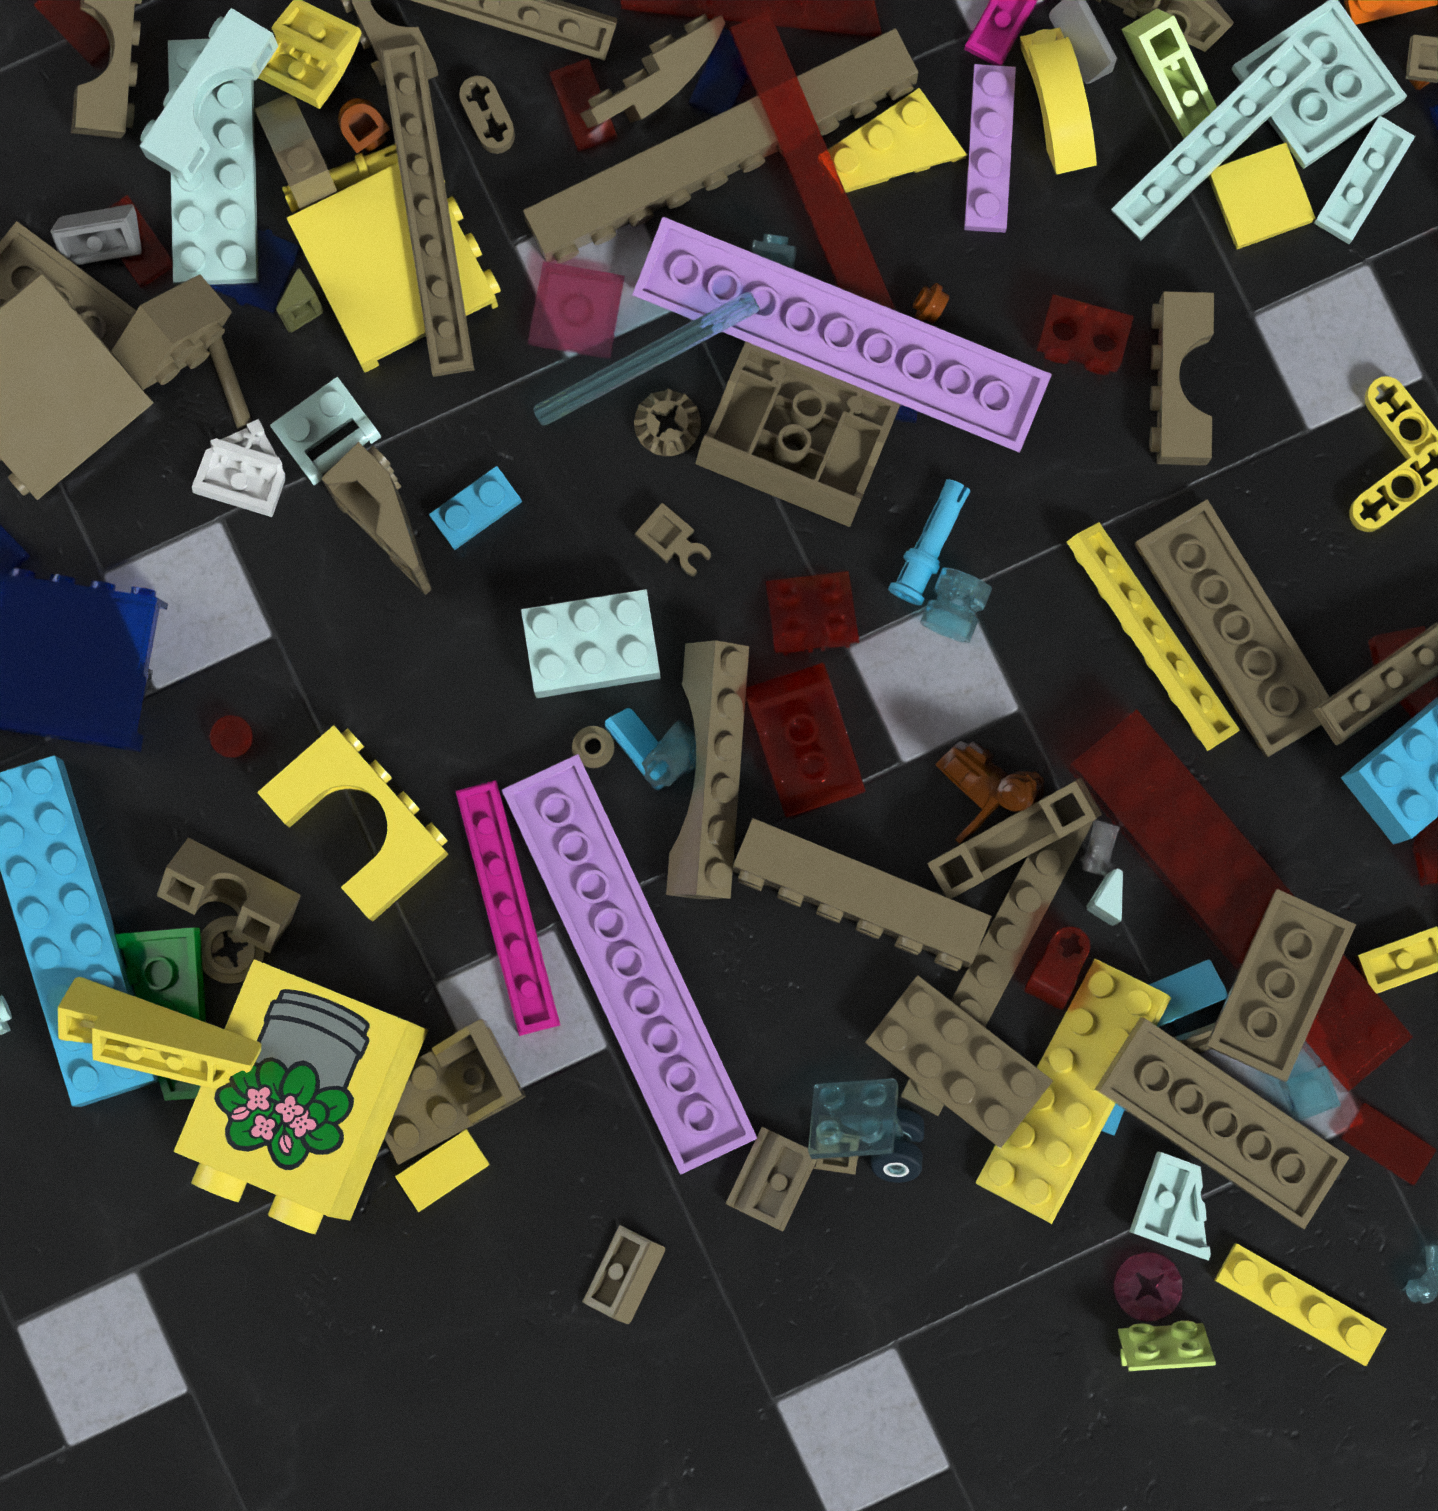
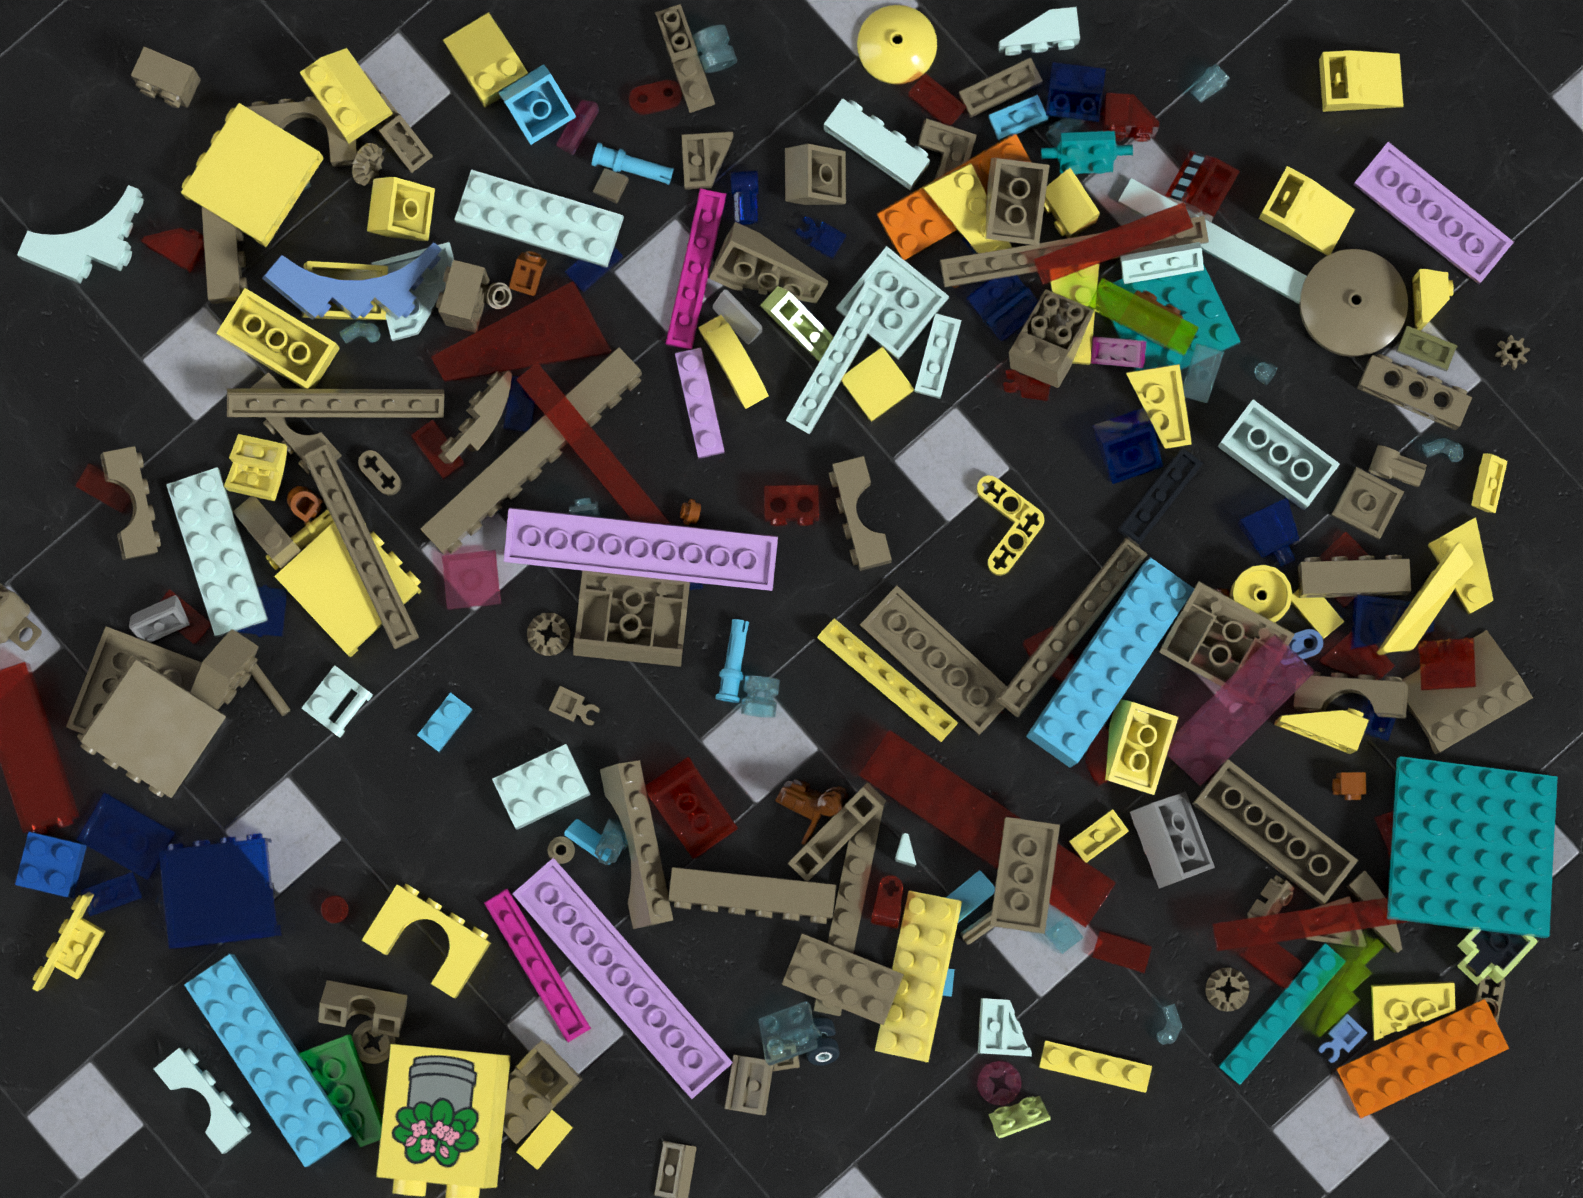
camera: 15 degrees left, 0 degrees up
(151, 1037) = (342, 1110): light yellow wedge -> none
(235, 51) = (211, 481): light aqua arch -> none
(242, 471) = (292, 741): white slope -> none
(298, 303) = (298, 627): olive slope -> none
(369, 493) = (378, 736): dark tan piece -> none
(646, 358) = (523, 599): clear light blue axle -> none
(812, 612) = (672, 726): clear red hinge -> none
(895, 143) = (638, 418): light yellow wing -> none
(1100, 848) = (892, 821): clear pin -> none
(1222, 1123) = (1014, 969): dark tan plate -> none

